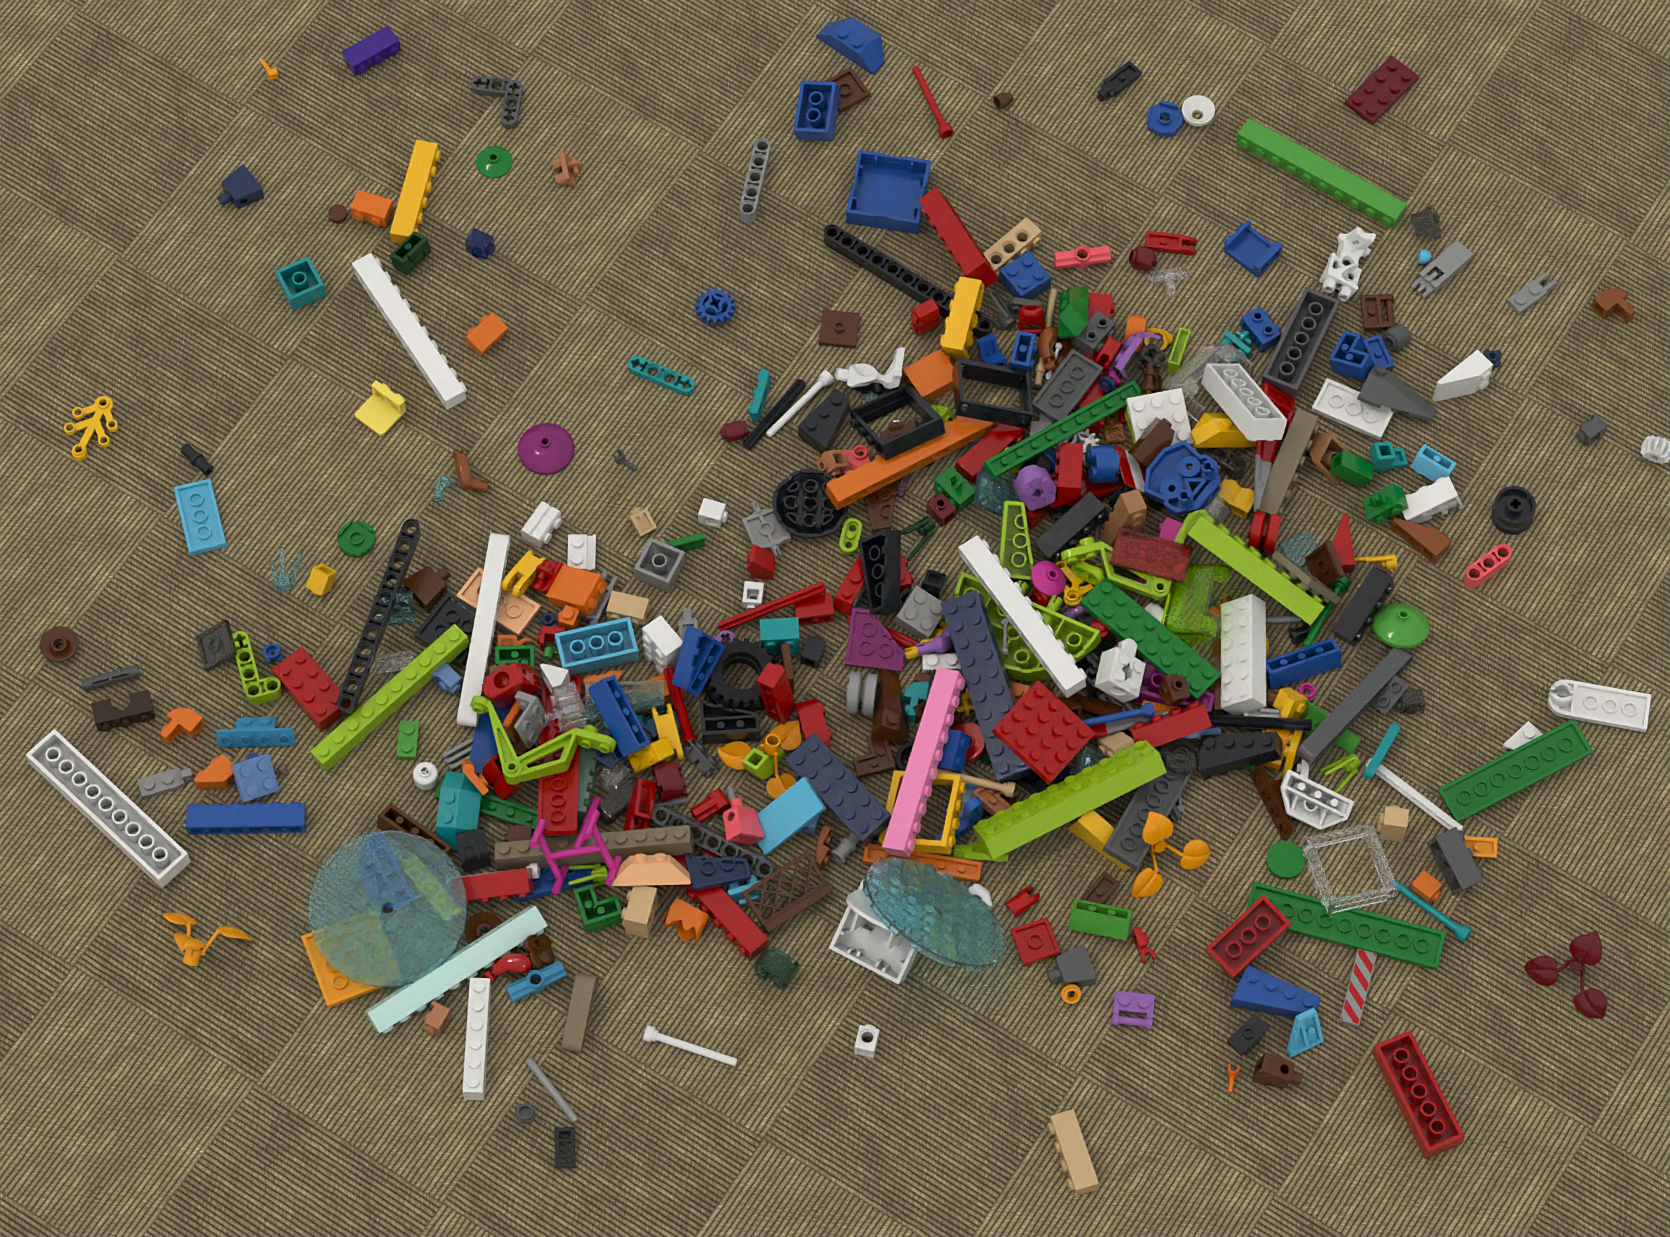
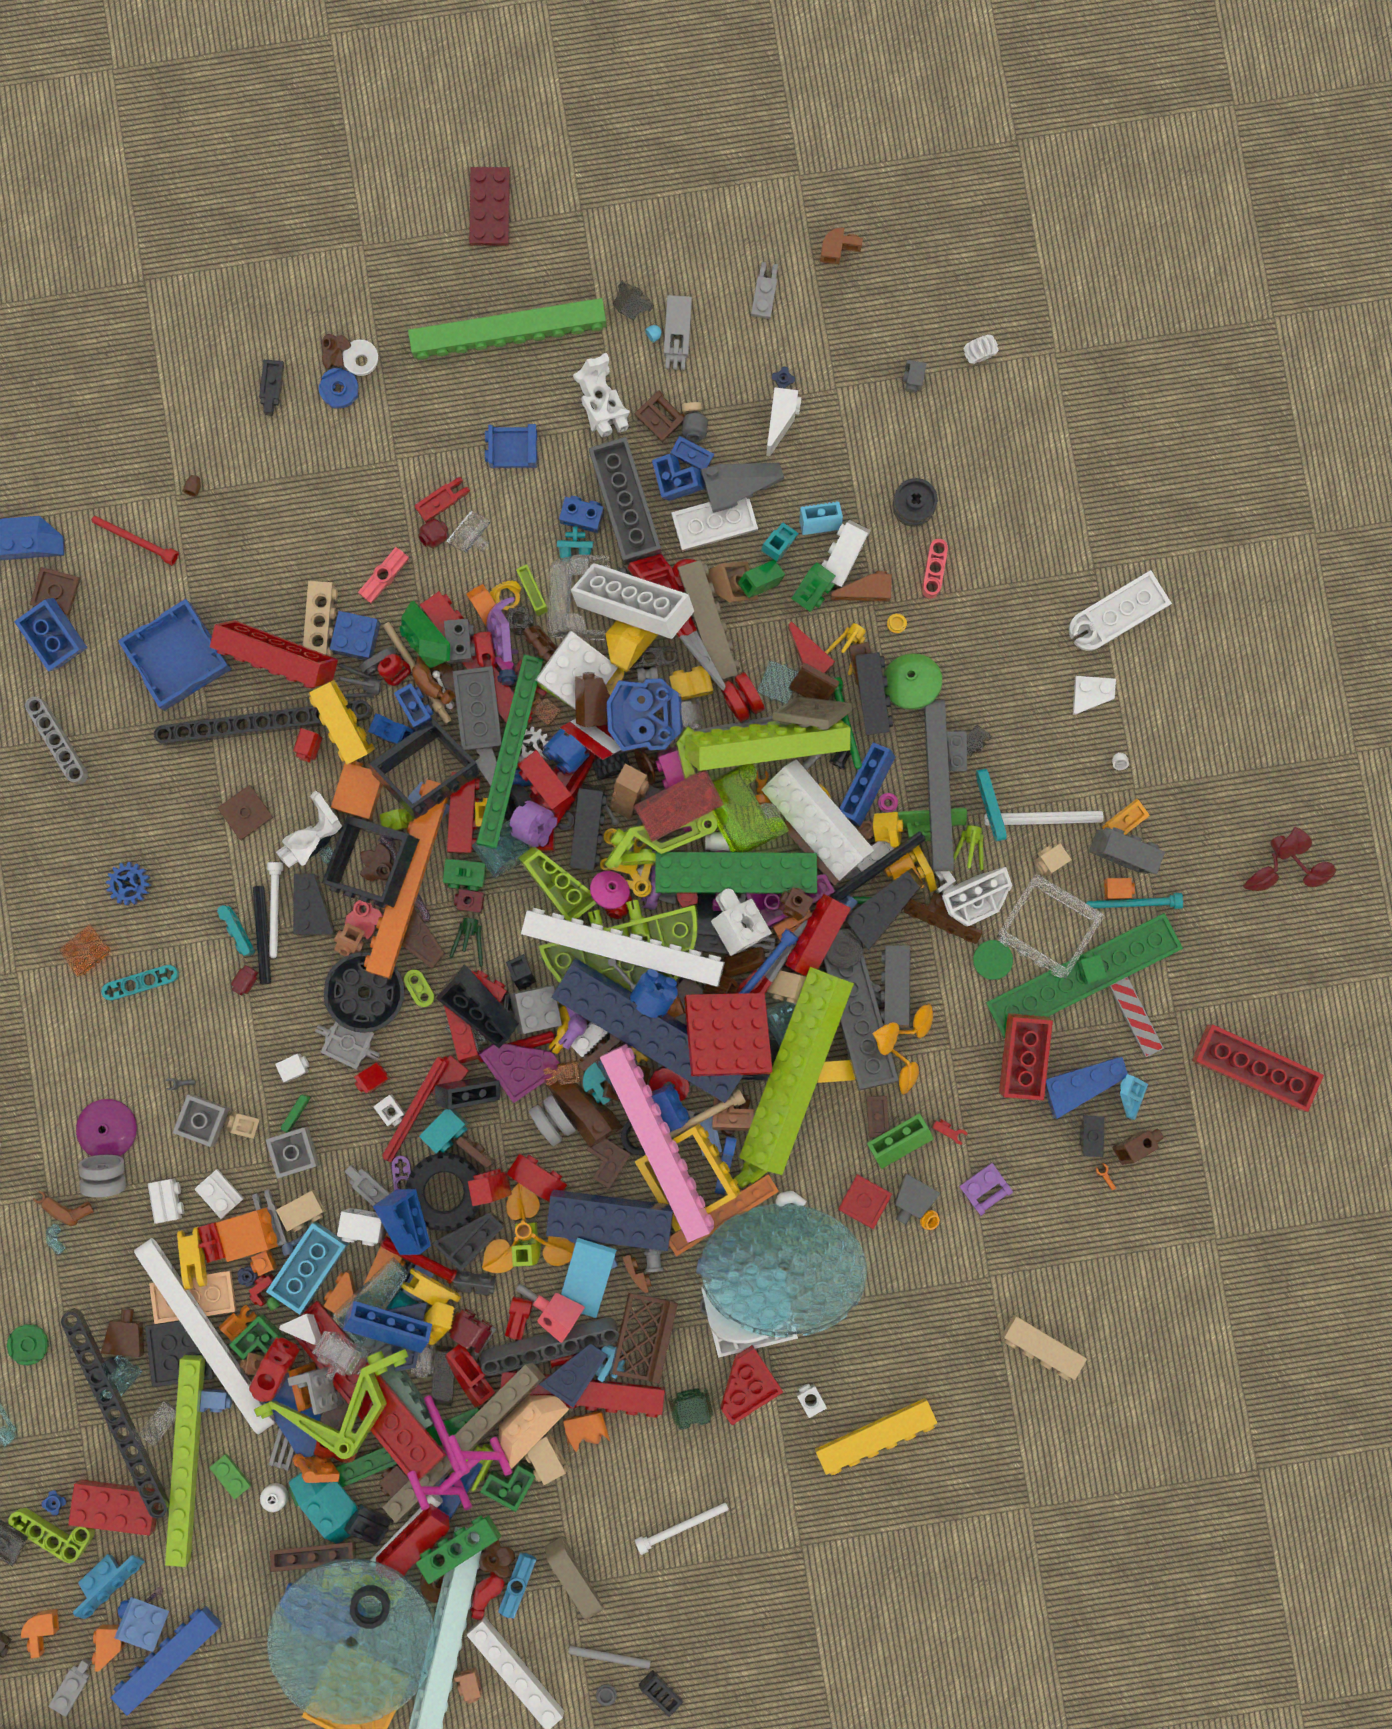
camera: 40 degrees left, 20 degrees up
(321, 579) = (34, 1409): yellow brick -> none
(426, 905) = (369, 1590): none -> black tyre
(516, 468) = (102, 1175): none -> light grey wheel
(551, 918) = (433, 1569): none -> green brick
(617, 492) = (201, 1120): none -> light grey brick
(643, 324) = (84, 951): none -> clear orange hinge
(813, 652) = (480, 1116): black brick -> none
(820, 623) = (467, 1092): none -> black brick
(831, 989) = (748, 1386): none -> red plate
(890, 1106) = (876, 1436): none -> yellow brick
(901, 673) = (565, 1073): none -> clear orange plate
(1016, 658) = (654, 993): none -> blue brick
(1022, 901) = (825, 1179): red piece -> none
(1153, 520) = (646, 764): none -> reddish brown dish
(1183, 91) = (332, 350): none -> reddish brown plate
(1198, 813) = (897, 986): none -> dark grey brick
(1354, 920) = (1092, 968): none -> green brick
(1407, 322) = (690, 407): none -> tan tile
(1425, 580) = (896, 623): none -> yellow plate
(1506, 806) = (1120, 761): none -> white hinge
(1515, 771) = (1104, 730): green plate -> none

